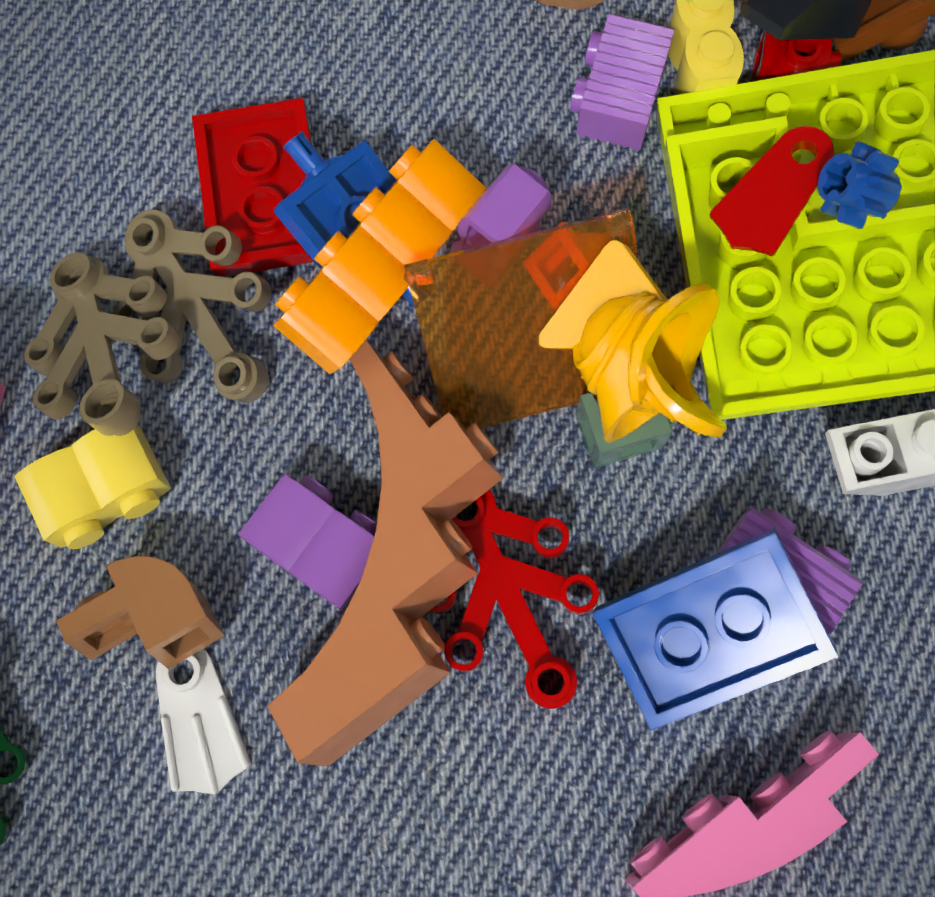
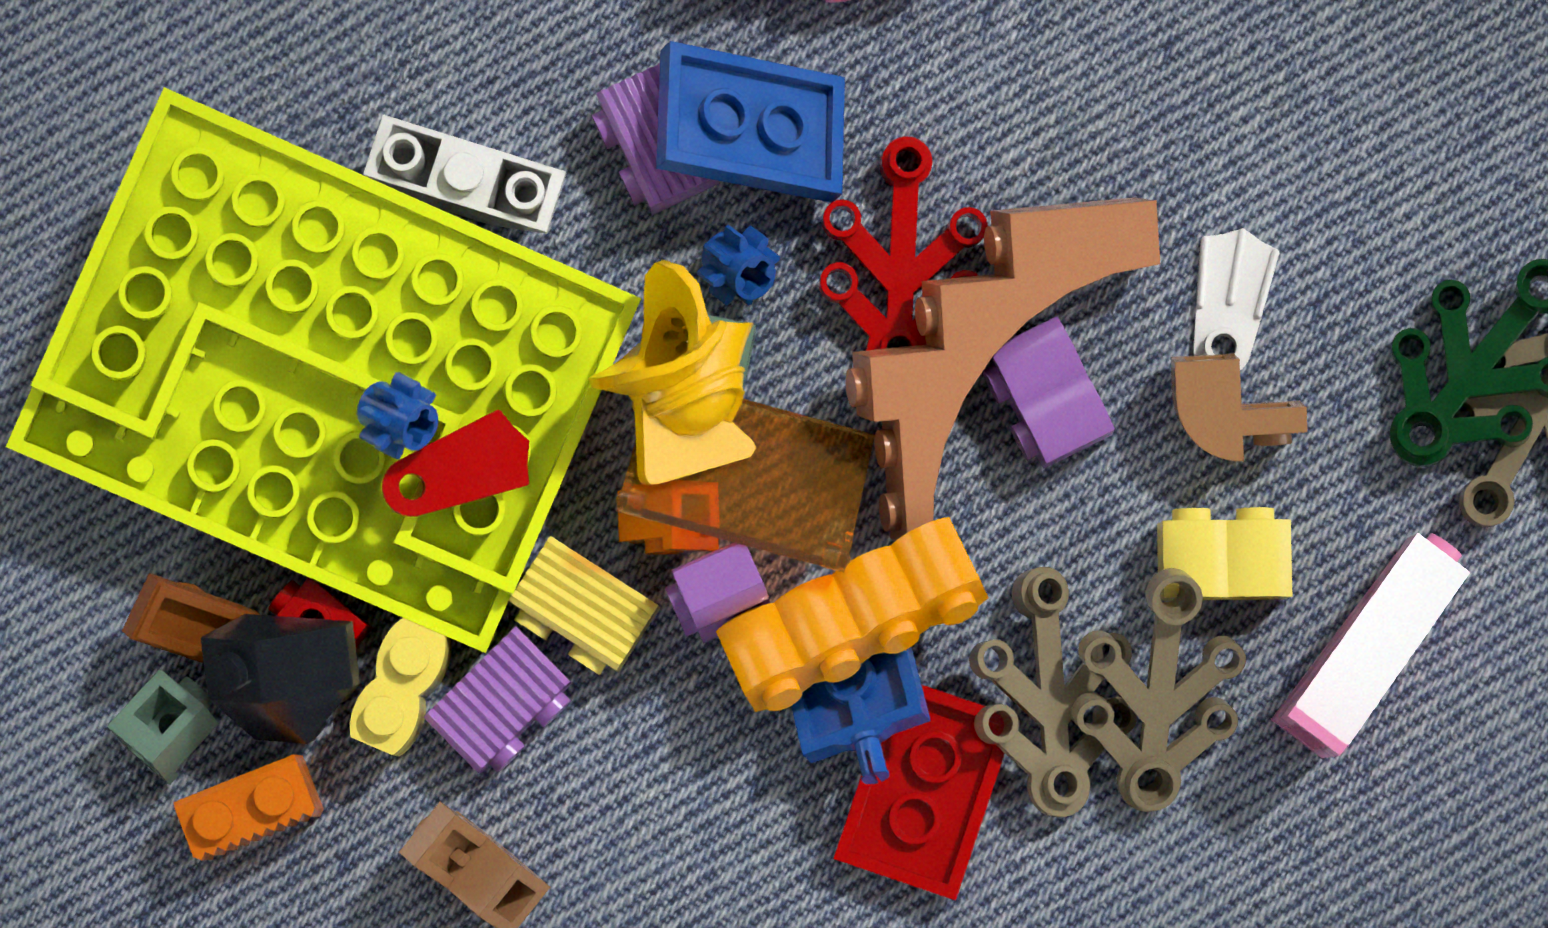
camera: 155 degrees left, 10 degrees up
(605, 175) = (583, 606): none -> light yellow brick
(644, 504) = (738, 265): none -> blue gear

